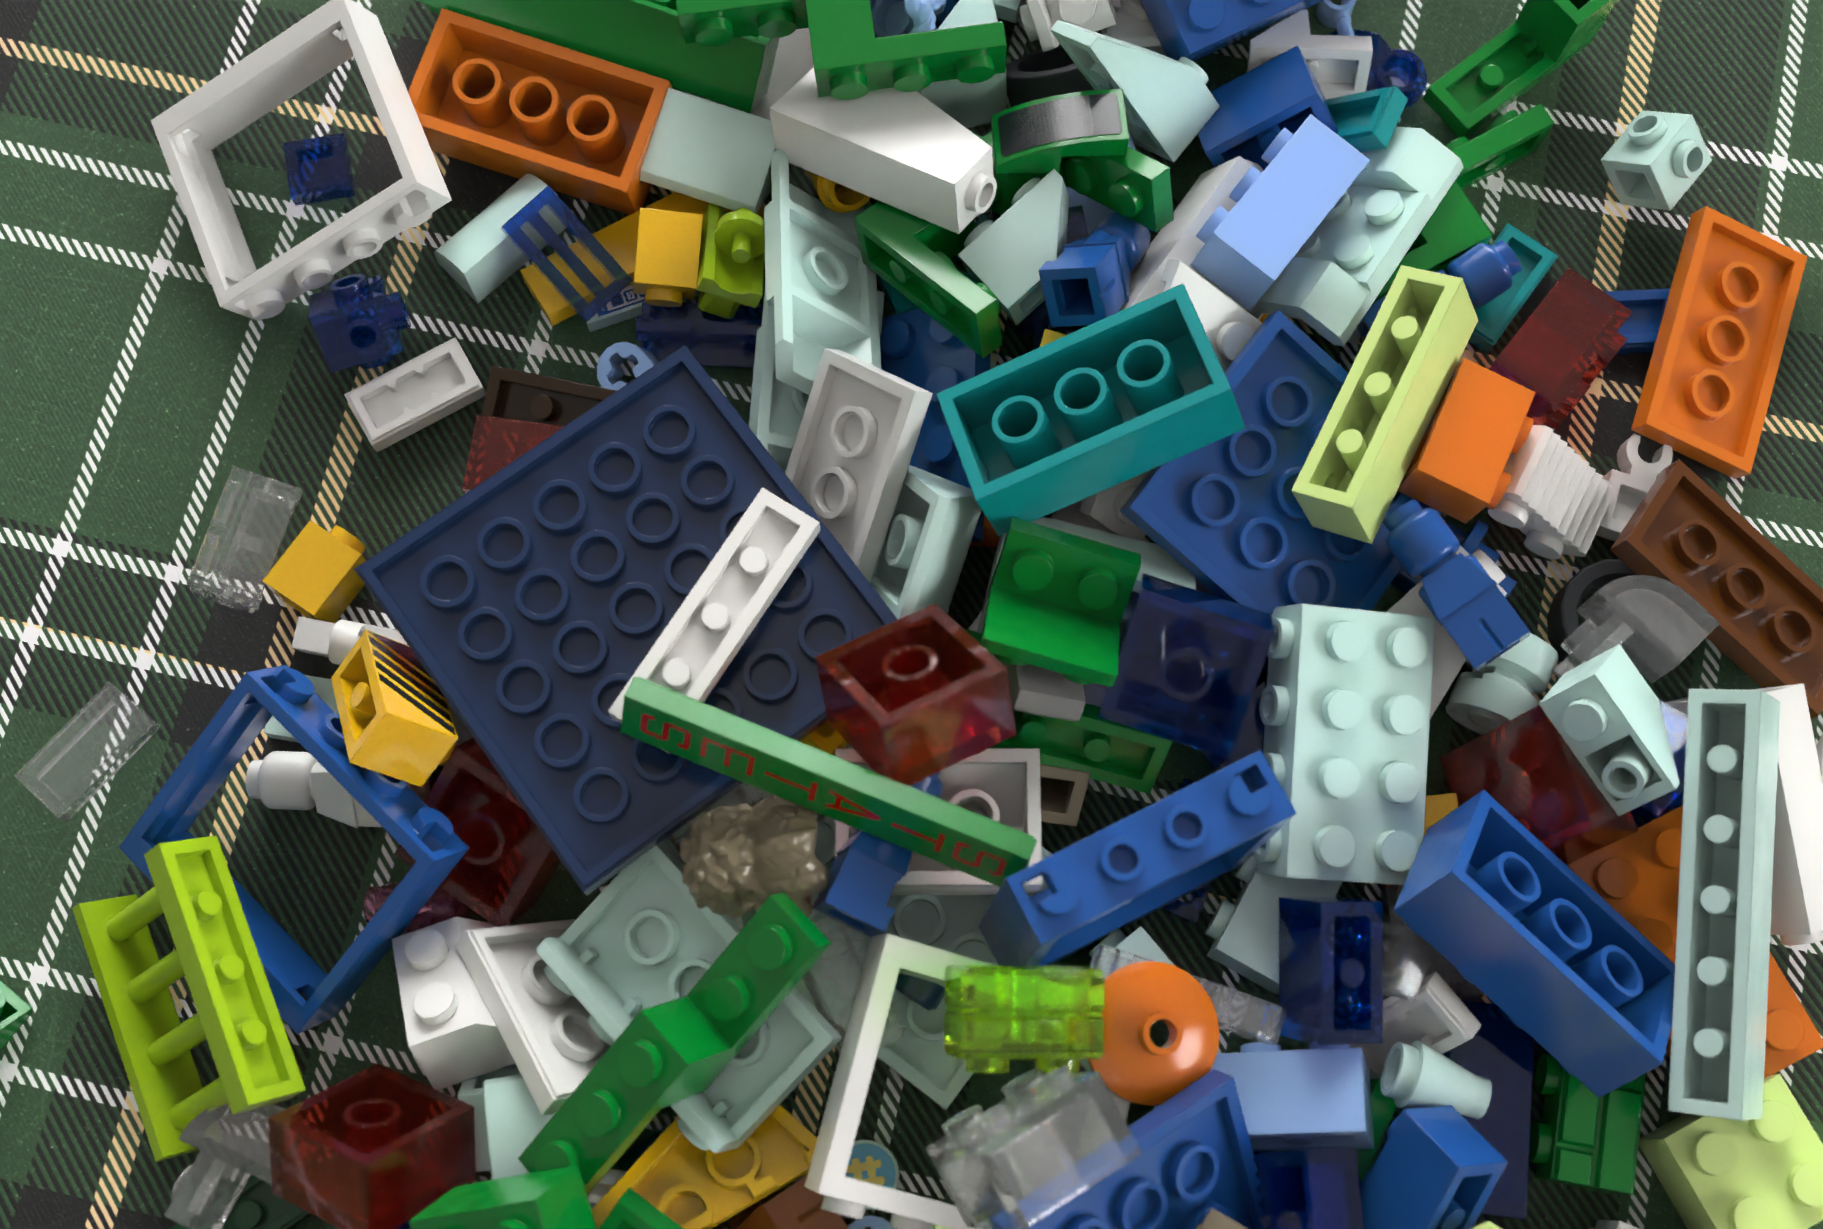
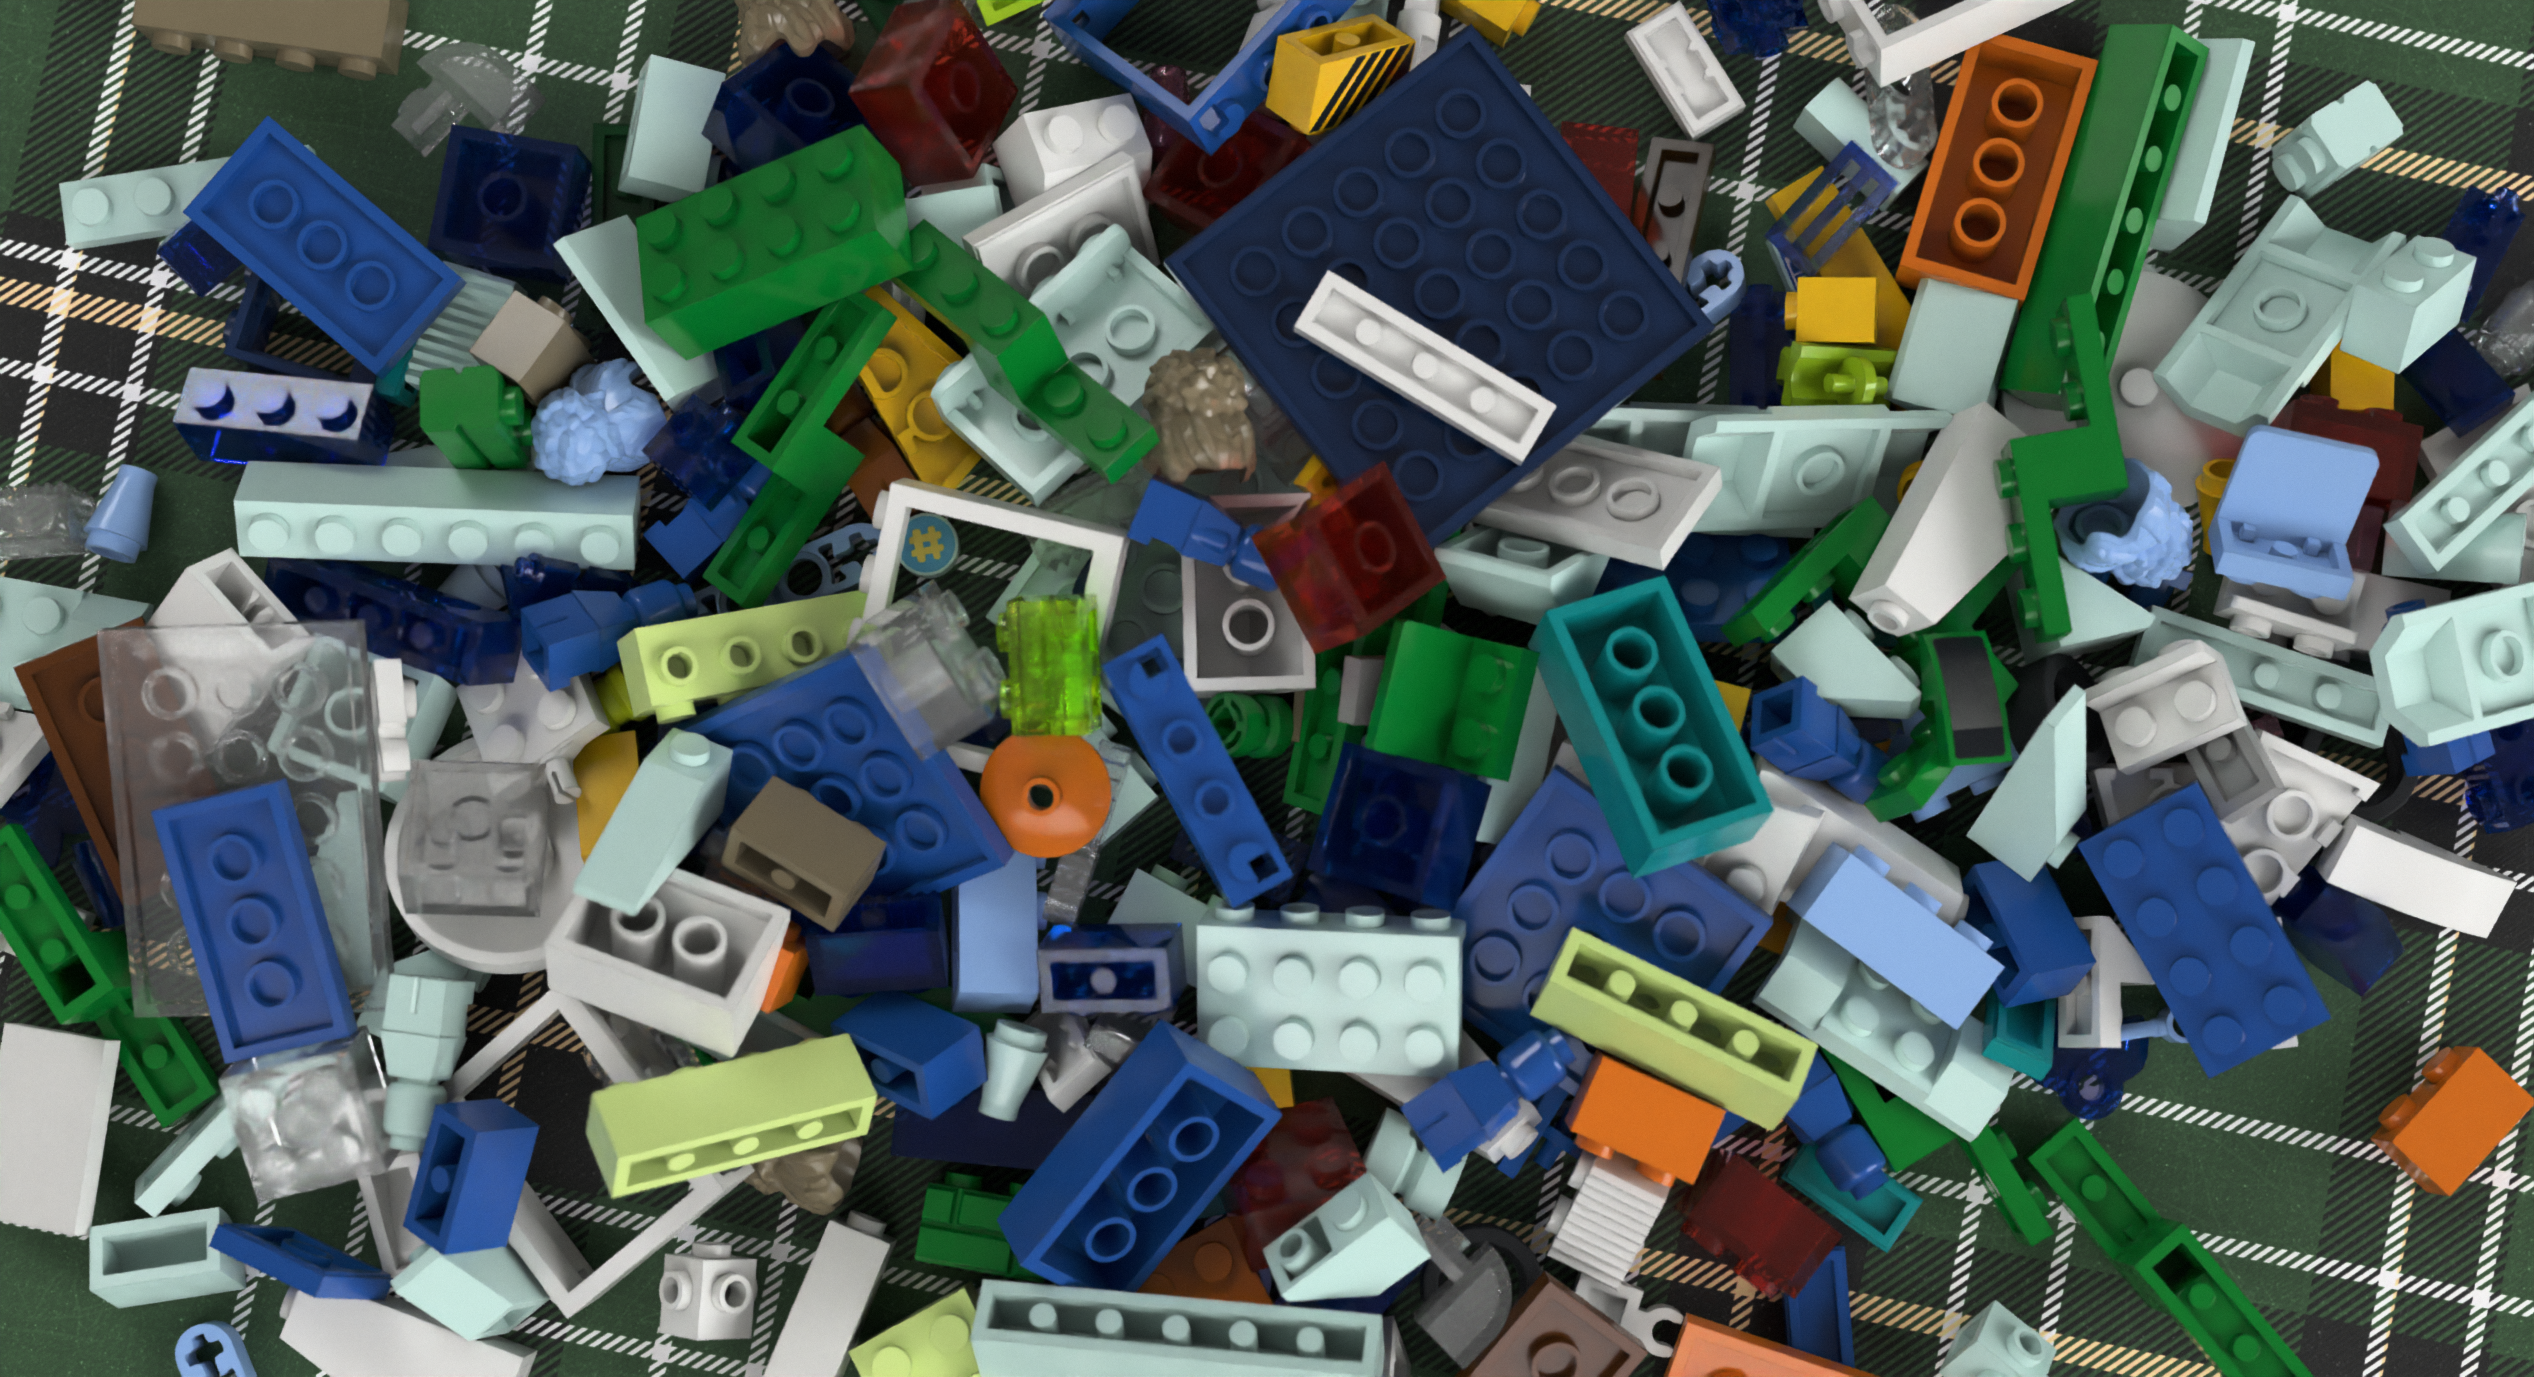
camera: 90 degrees right, 10 degrees up
(477, 190) = (1888, 108): none -> clear beam
(824, 783) = (1257, 471): green tile -> none
(1069, 814) = (1251, 724): none -> green wheel

